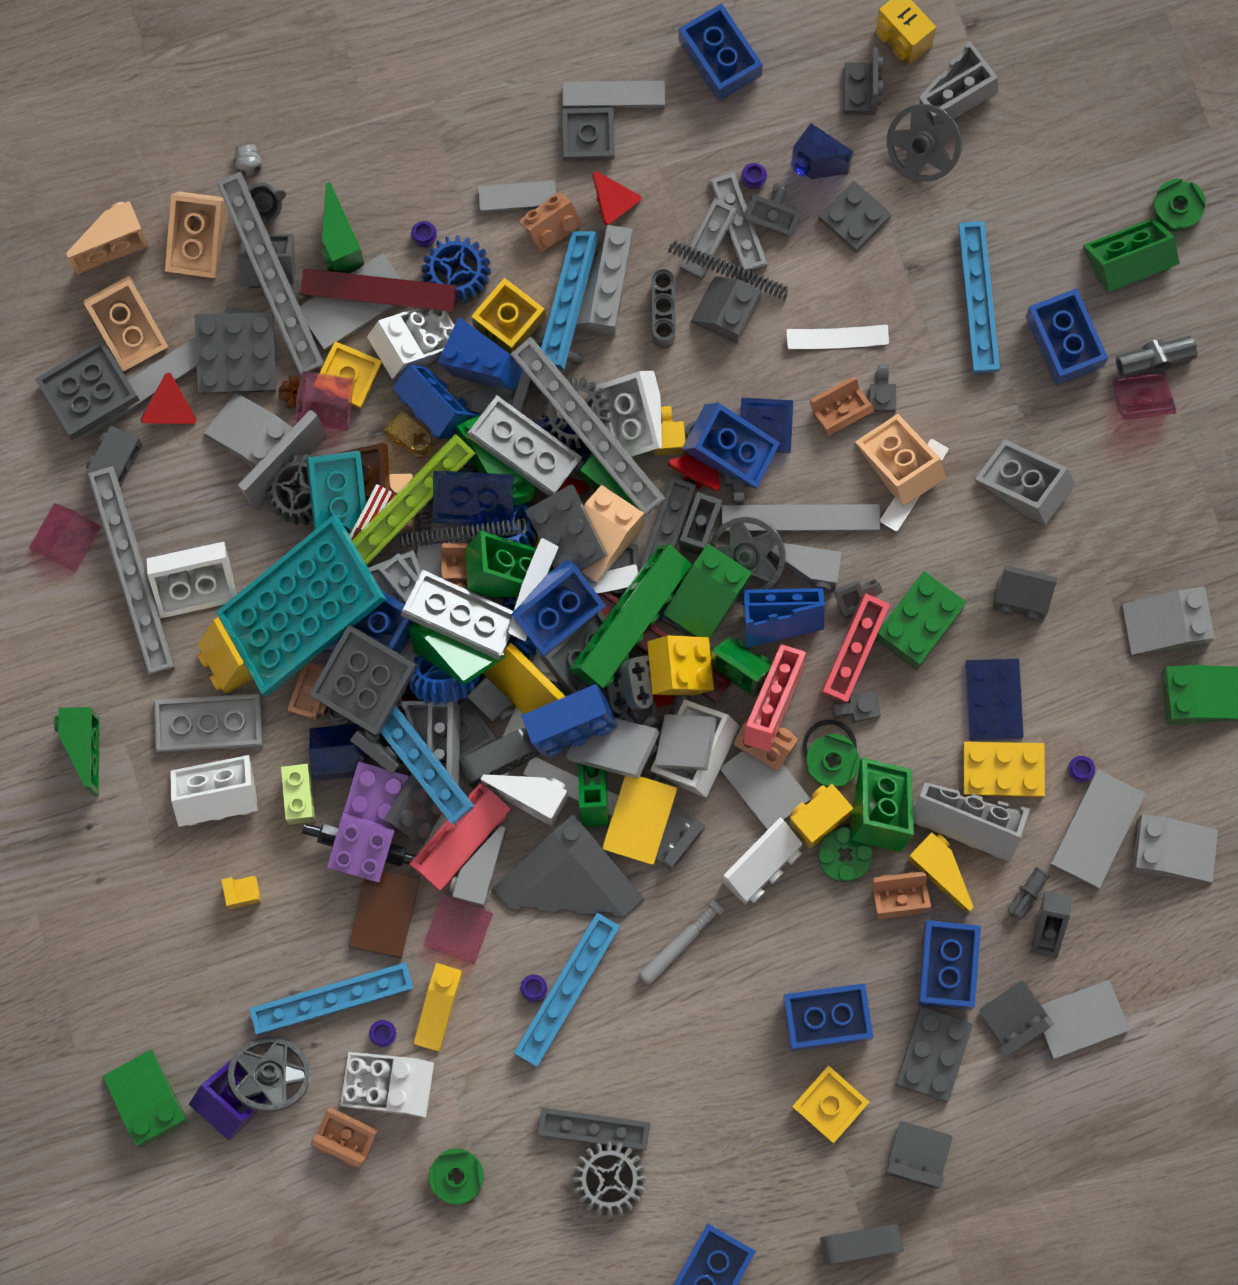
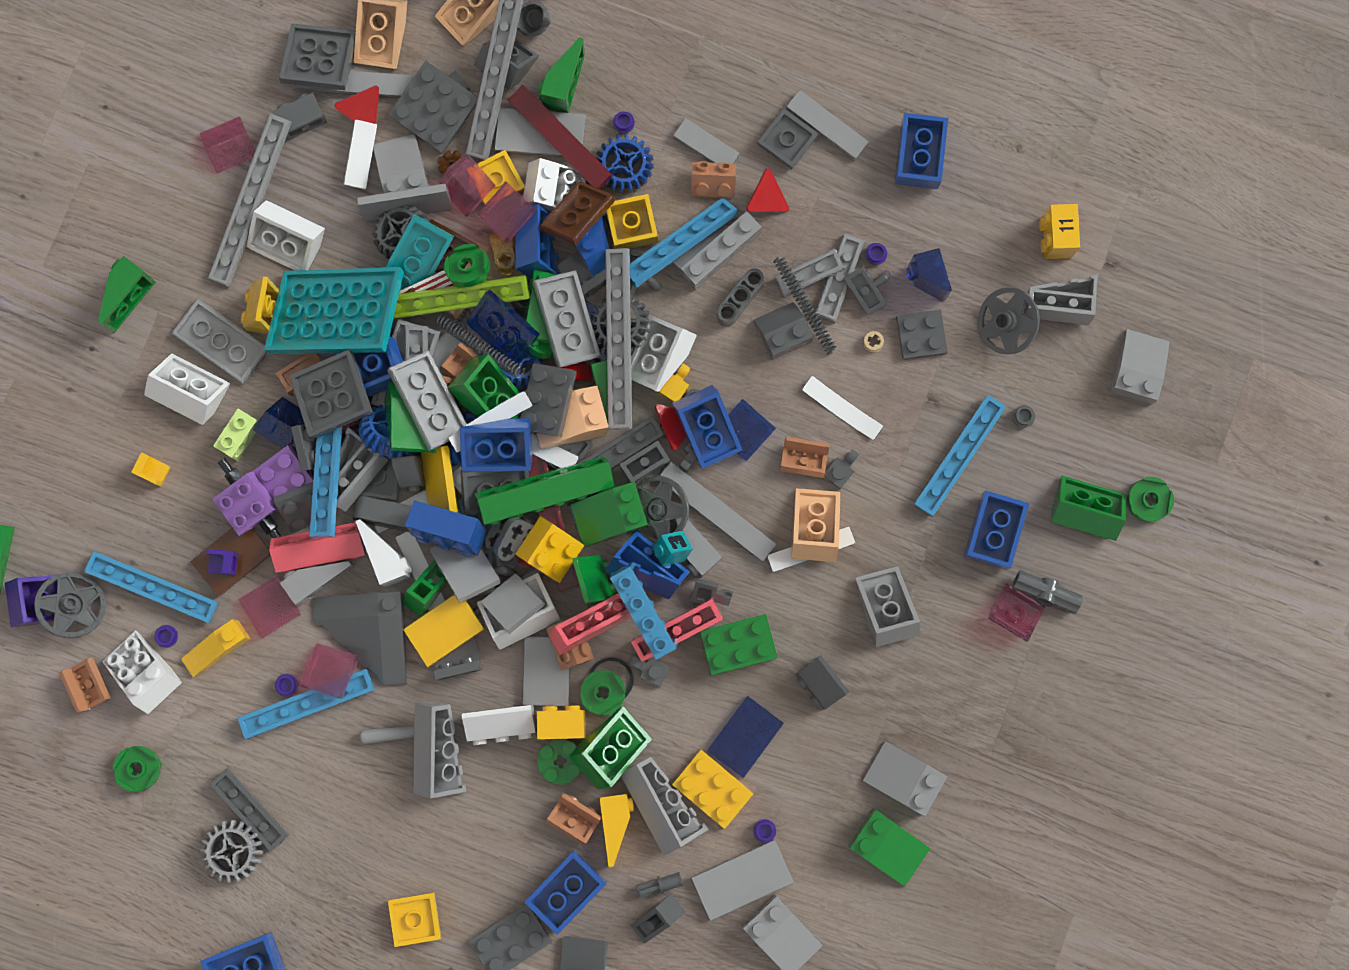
camera: 35 degrees right, 5 degrees up
(200, 450) = (360, 154): none -> white tile
(380, 921) = (222, 562): none -> dark purple panel
(385, 394) = (506, 212): none -> clear pink tile
(403, 476) = (467, 277): none -> green plate
(454, 343) = (577, 213): none -> reddish brown tile
(564, 941) = (329, 670): none -> clear pink tile
(724, 934) = (435, 751): none -> light grey wedge
(791, 577) = (672, 548): none -> teal brick
(814, 647) = (643, 611): none -> dark azure window
(824, 258) = (871, 335): none -> tan bush
(827, 1017) = (457, 861): blue brick -> none
(863, 85) = (997, 250): dark grey bracket -> none
(1006, 218) = (1023, 416): none -> dark grey plate
(1074, 95) = (1140, 367): none -> light grey slope

